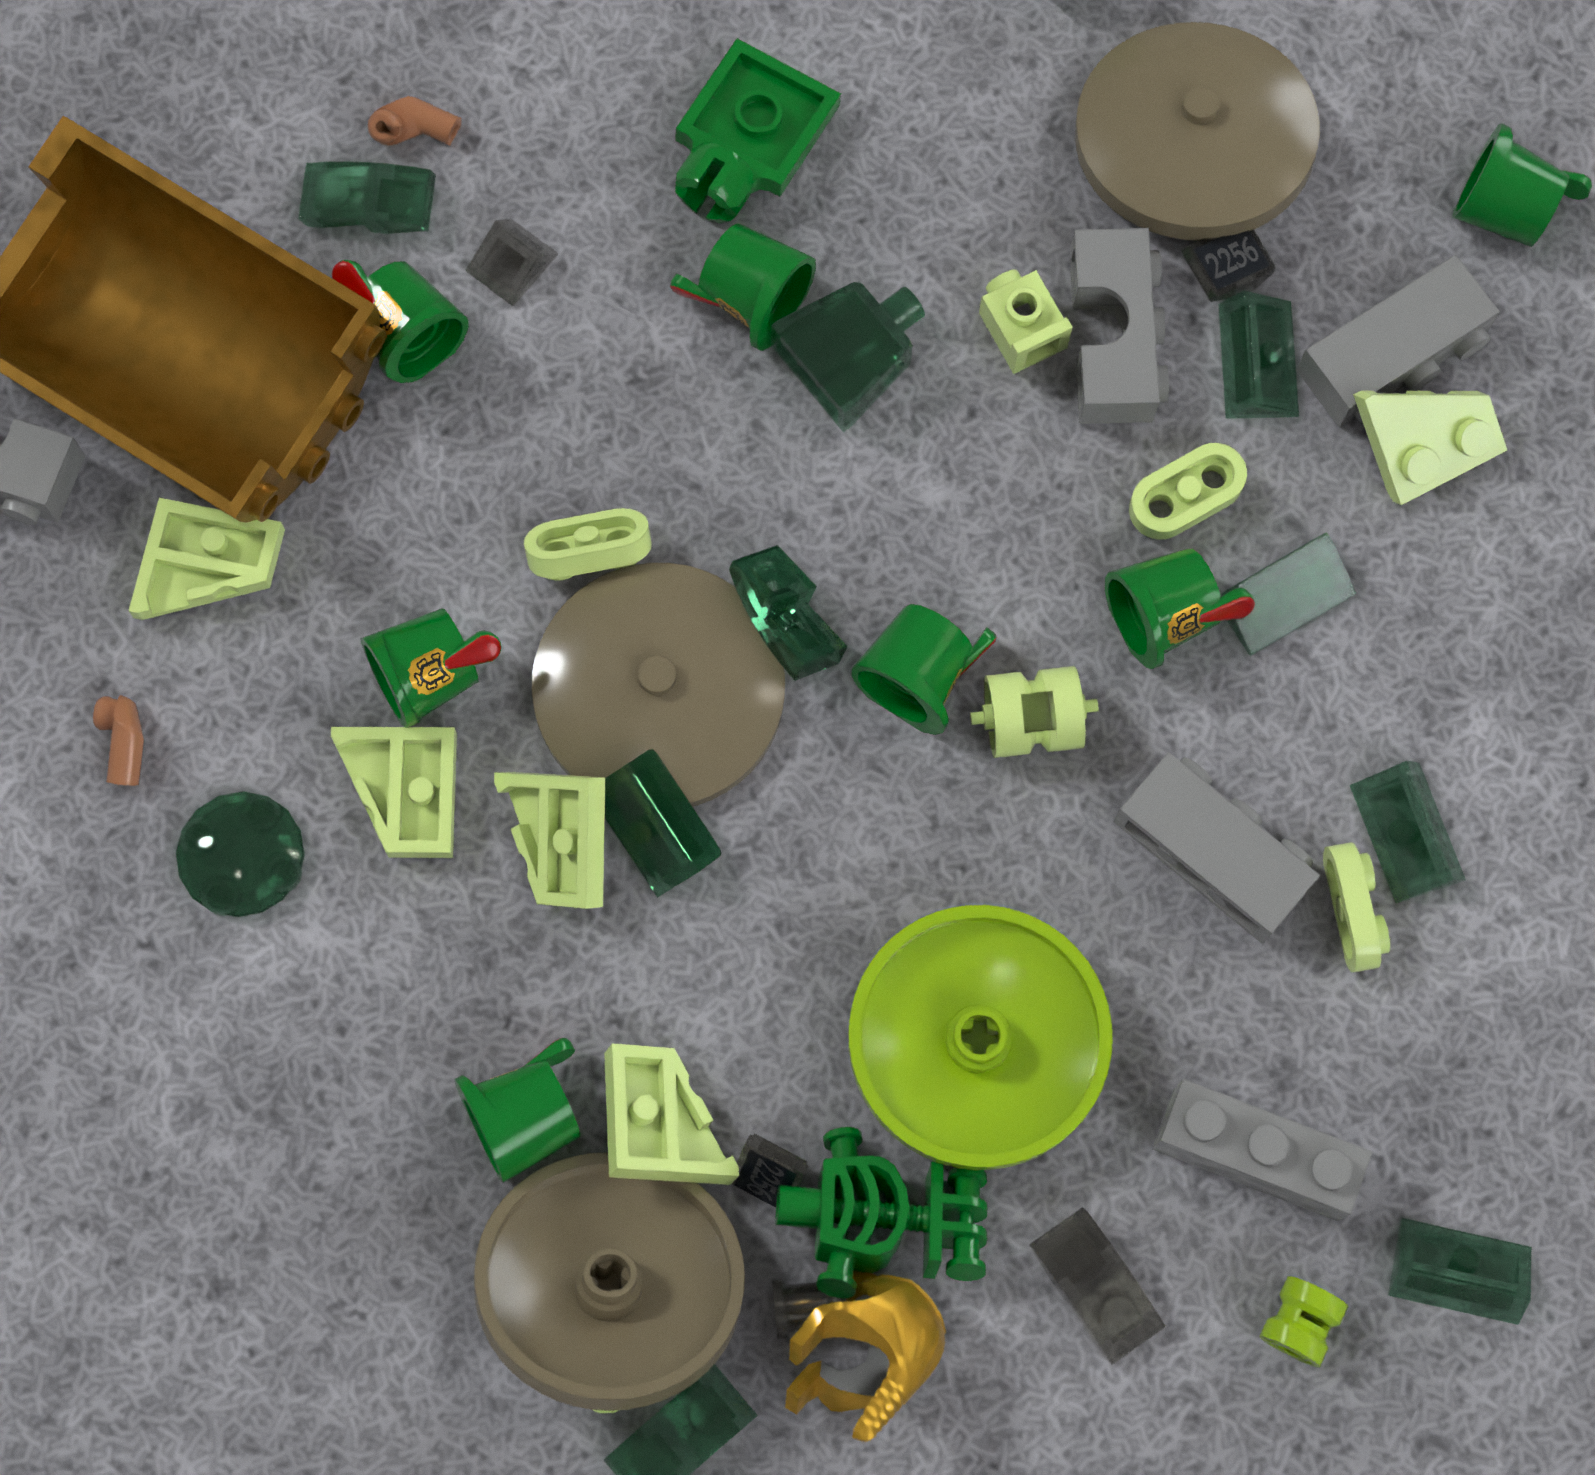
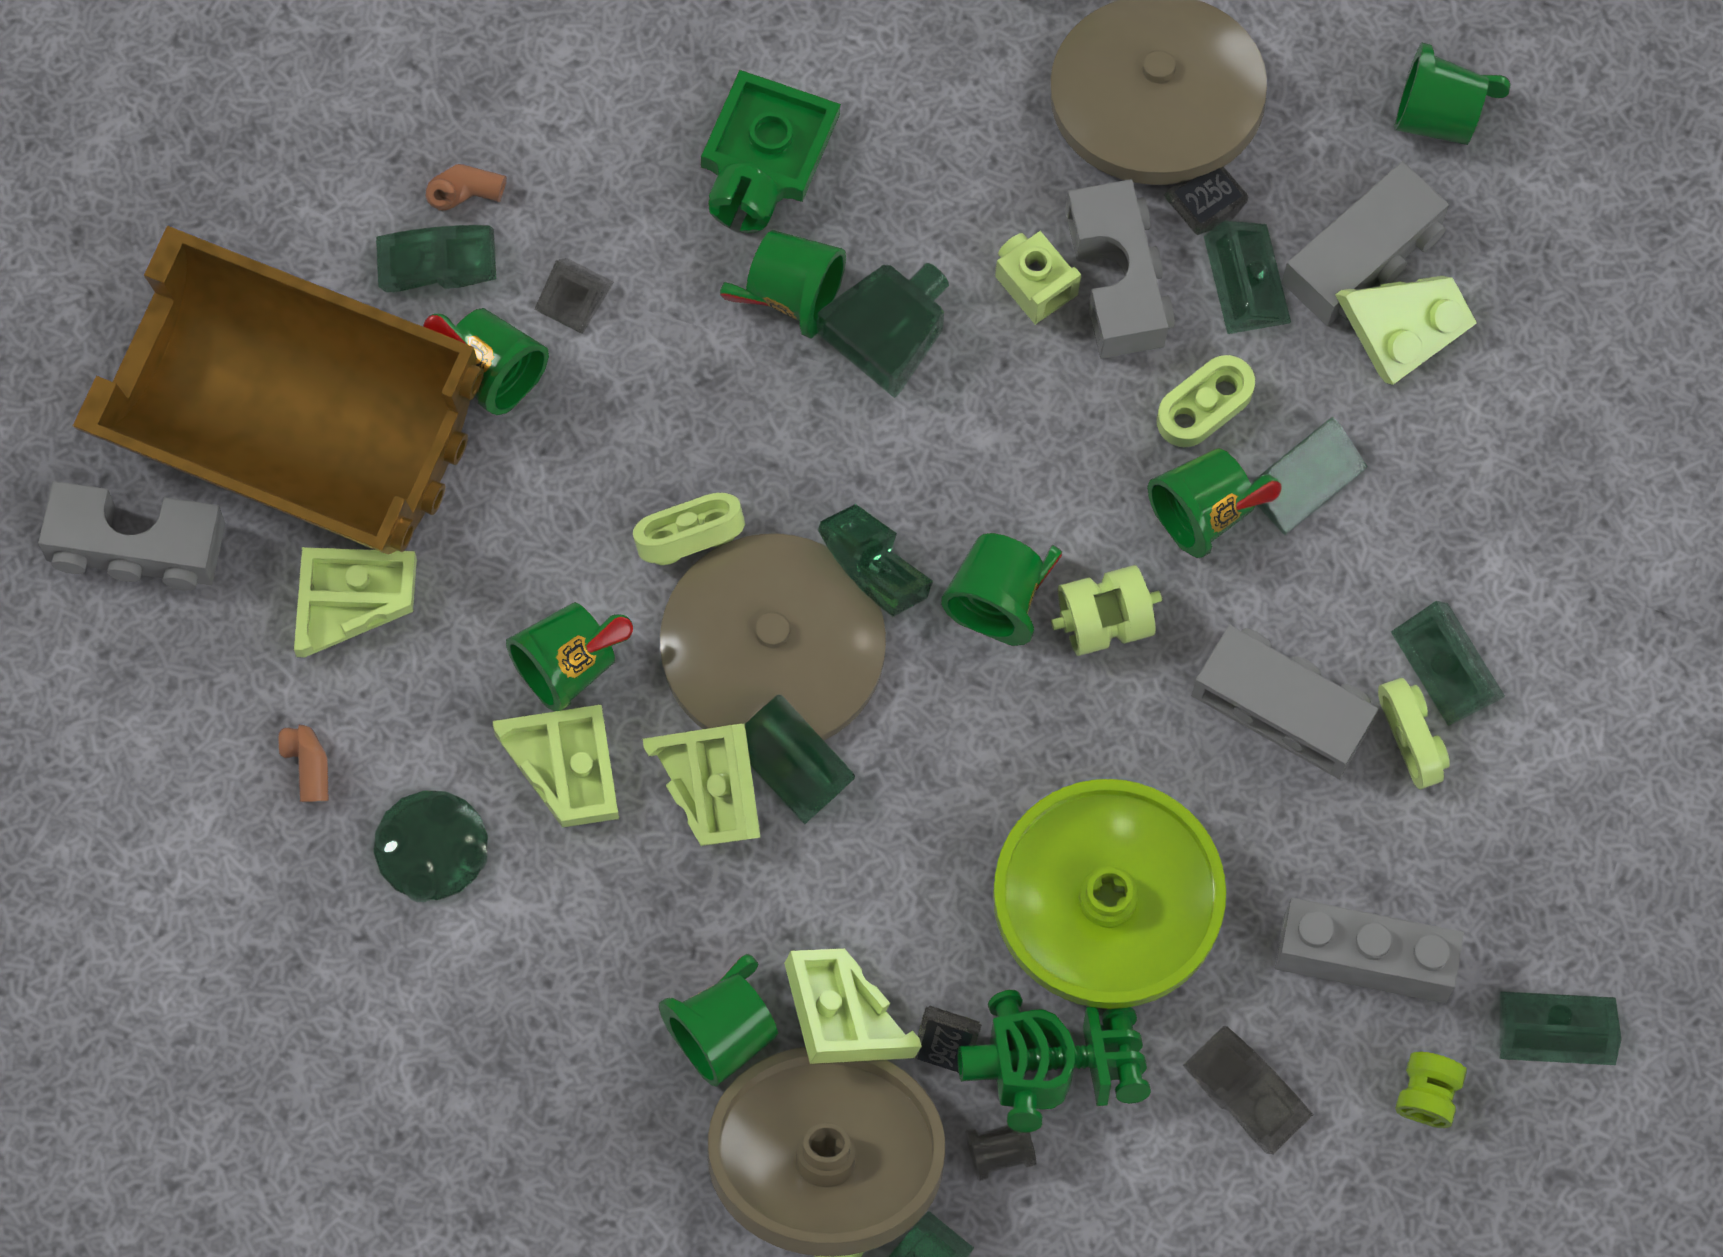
camera: 10 degrees left, 5 degrees down
(903, 1351) = (1086, 1156): pearl gold piece -> none

